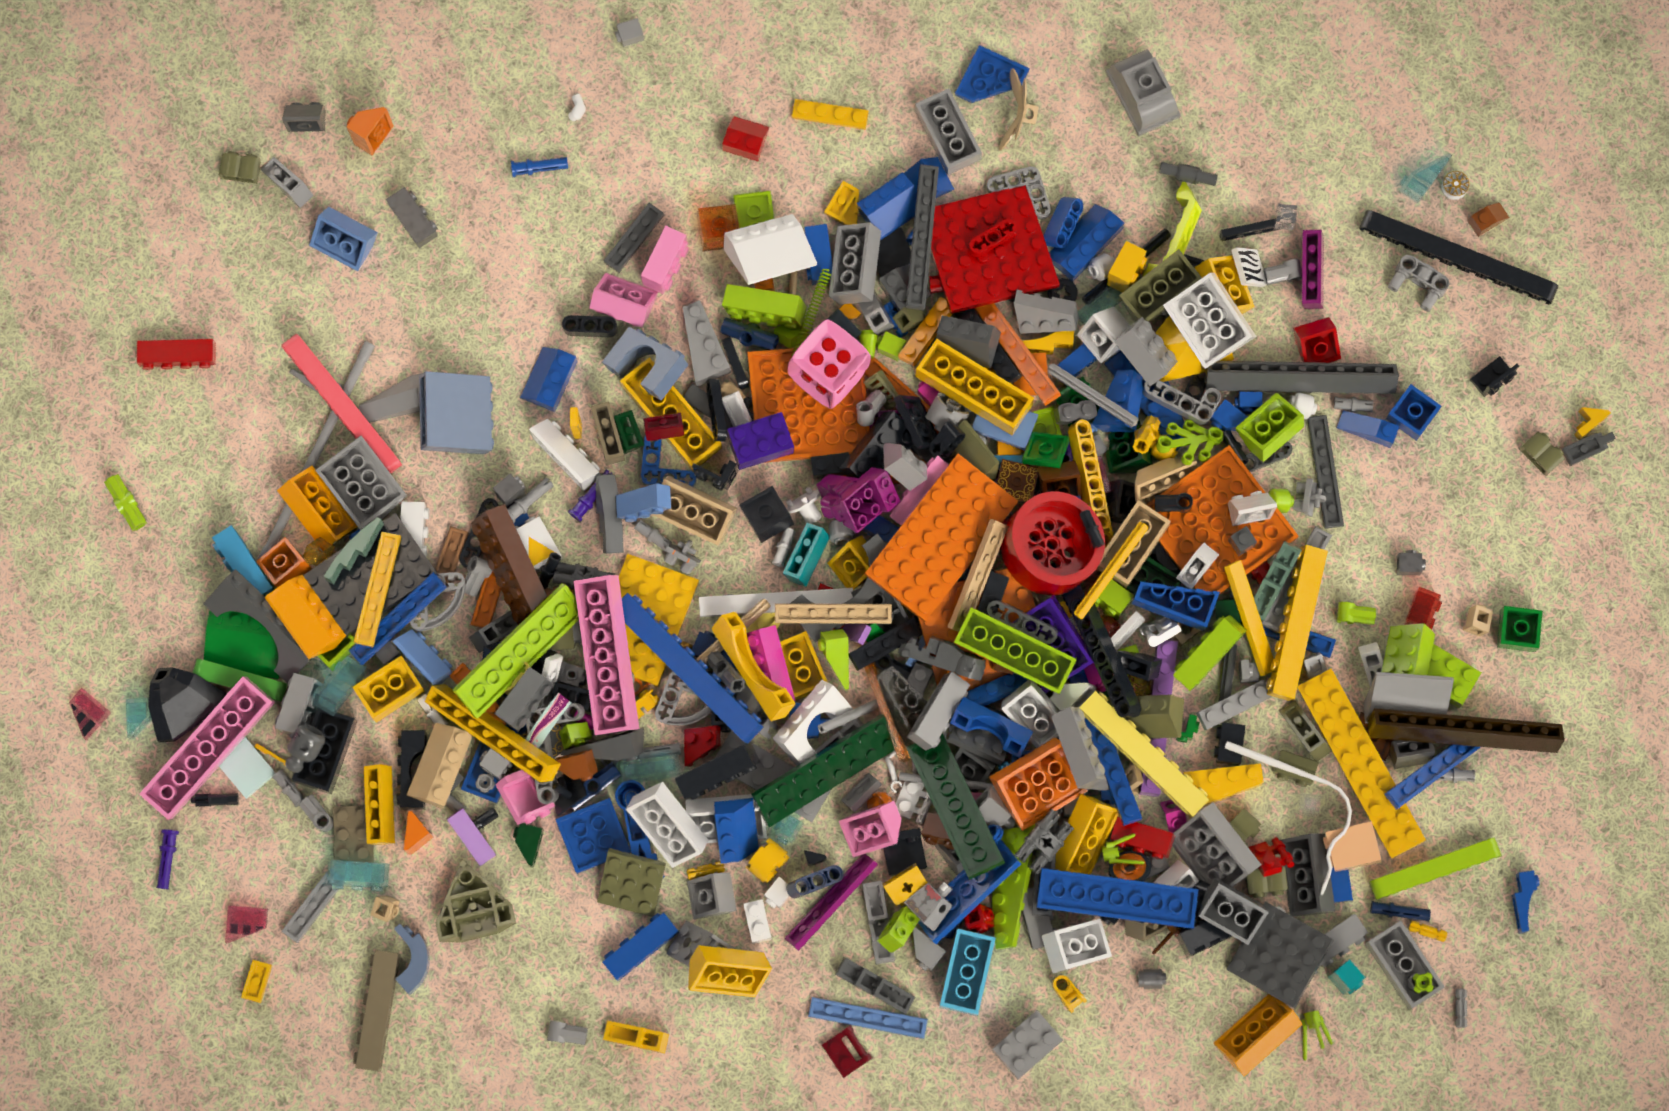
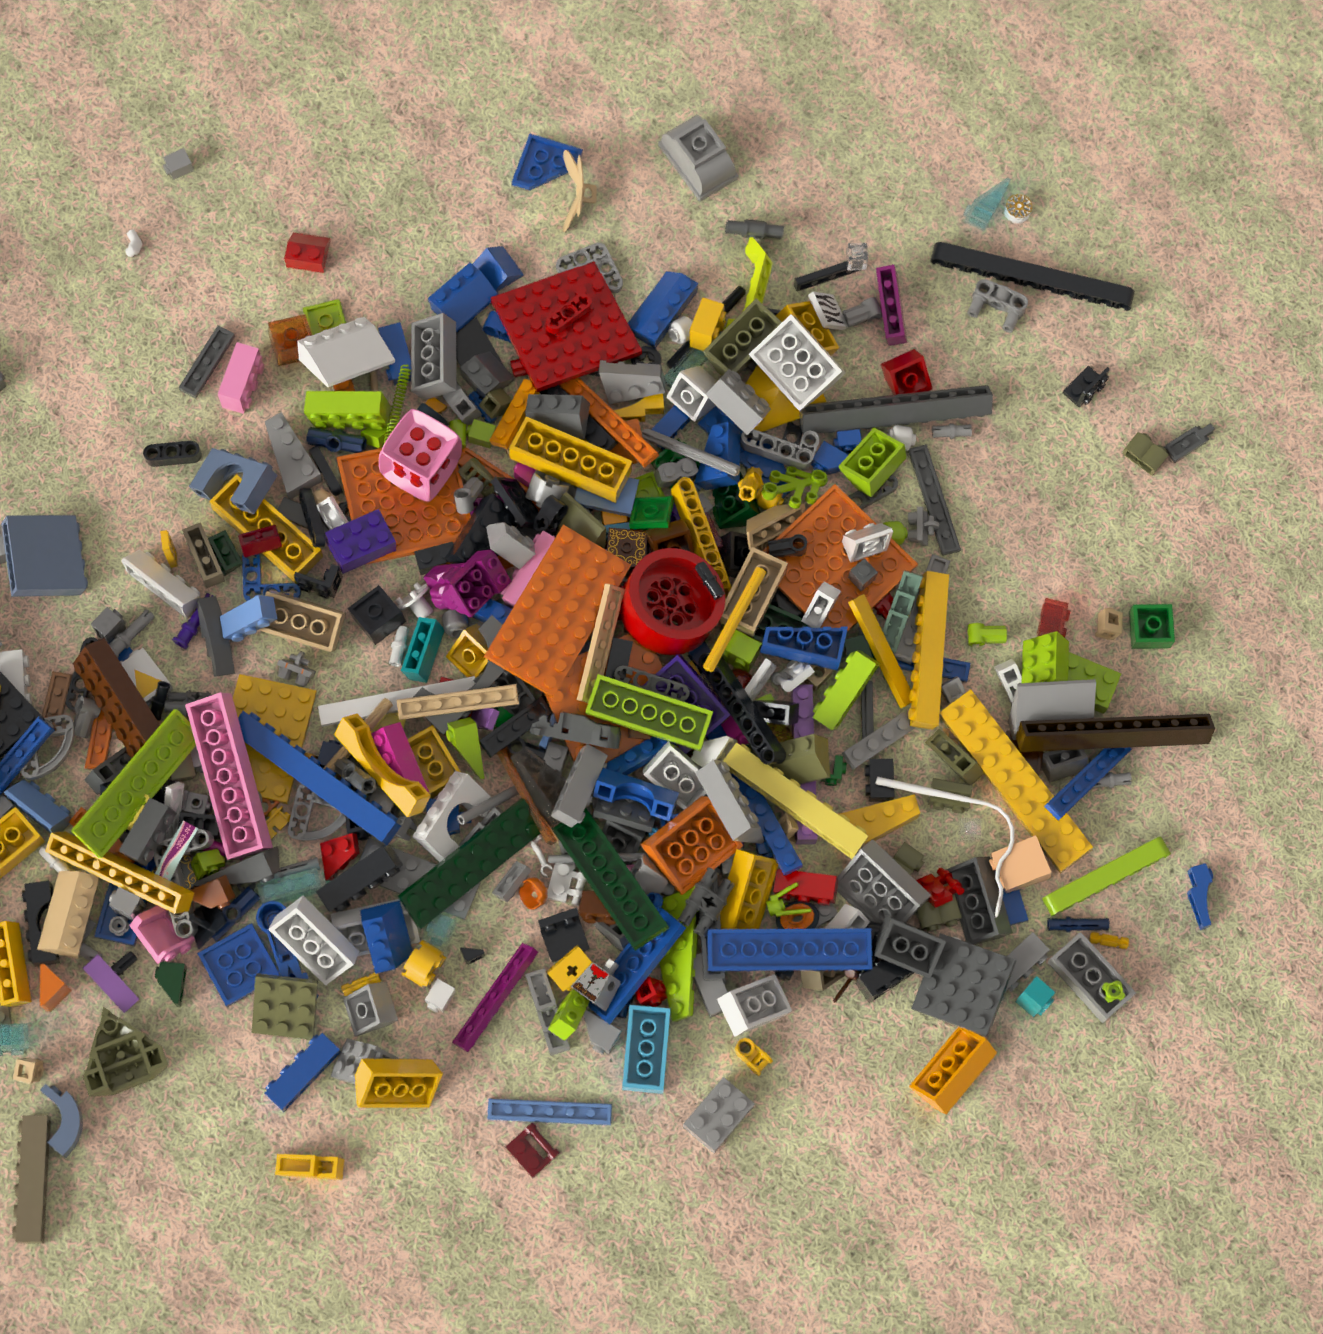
camera: 15 degrees left, 5 degrees down
(530, 167) = (92, 306): blue pin -> none
(549, 378) = (137, 510): blue slope -> none
(563, 1032) = (232, 1173): light grey piece -> none
(623, 300) = (203, 424): bright pink slope -> none
(652, 534) = (262, 652): light grey pin -> none
(757, 921) = (421, 1028): white brick -> none
(823, 880) = (469, 984): dark blue beam -> none
(830, 114) = (390, 218): yellow plate -> none
(844, 205) = (415, 302): yellow wing -> none
(872, 828) = (527, 915): bright pink slope -> none
(875, 985) = (552, 1077): dark grey slope -> none
(922, 237) = (497, 322): dark grey tile -> none
(948, 131) = (510, 219): light grey brick -> none
(1063, 222) = (637, 291): blue beam -> none
(1152, 978) = (836, 1029): flat silver brick -> none
(1174, 816) = (835, 861): dark pink bracket -> none
(1229, 439) = (833, 479): black pin -> none
(1248, 671) = (887, 706): light grey bracket -> none
(1314, 1021) = (1009, 1048): lime plant -> none
(1369, 428) = (971, 451): blue slope -> none
(1410, 563) = (1032, 577): flat silver brick -> none
(1413, 412) = (1012, 429): blue brick -> none
(1461, 1008) = (1155, 1013): light grey axle -> none
(1488, 218) = (1054, 236): dark orange slope -> none
(1593, 418) = (1188, 413): yellow slope -> none

